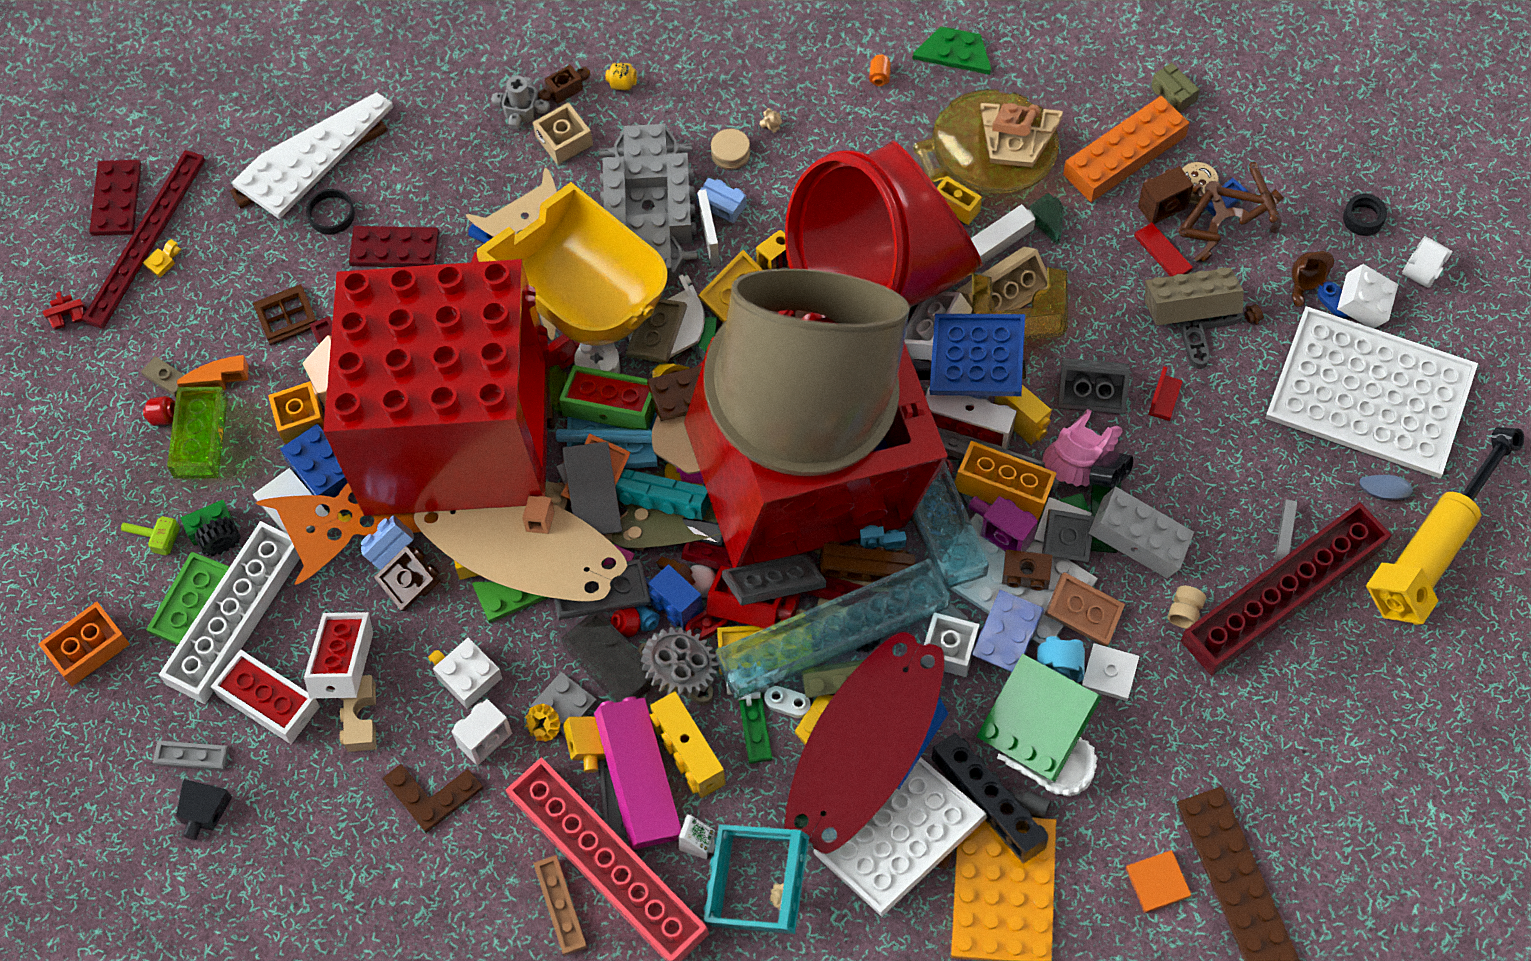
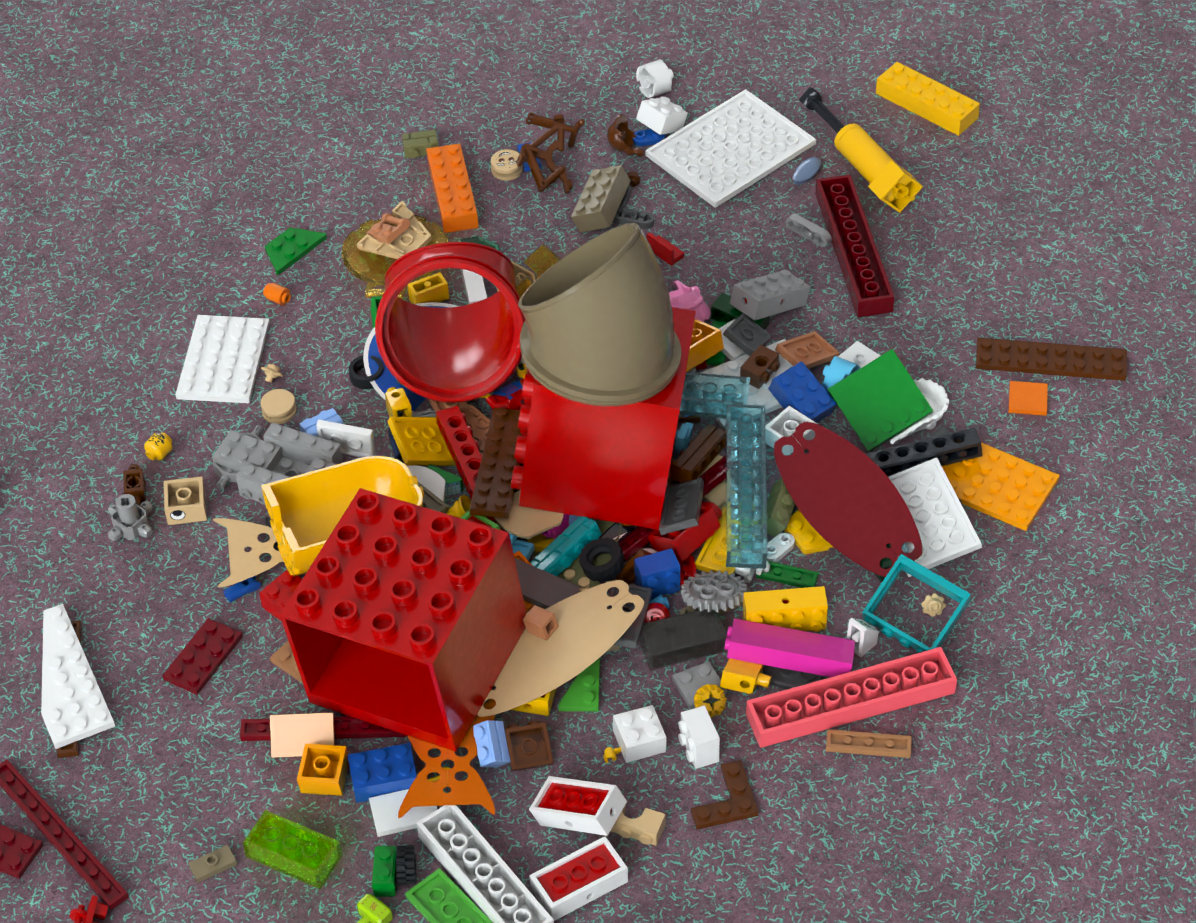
camera: 65 degrees left, 15 degrees down
(159, 410) = (248, 874): red head -> none
(161, 261) = (89, 829): yellow plate -> none
(217, 373) = (242, 820): orange slope -> none
(278, 299) = (194, 753): reddish brown piece -> none
(327, 193) = (133, 705): black tyre -> none
(658, 520) = (605, 571): none -> black tyre
(770, 71) = (223, 359): none -> white plate
(1005, 524) = (722, 357): magenta brick -> none
(1111, 469) = (713, 291): black beam -> none
(1162, 250) = (548, 205): red tile -> none
(1165, 195) = (508, 180): reddish brown brick -> none
(1186, 606) = (836, 300): tan wheel -> none
(1363, 228) = (593, 103): black tyre -> none

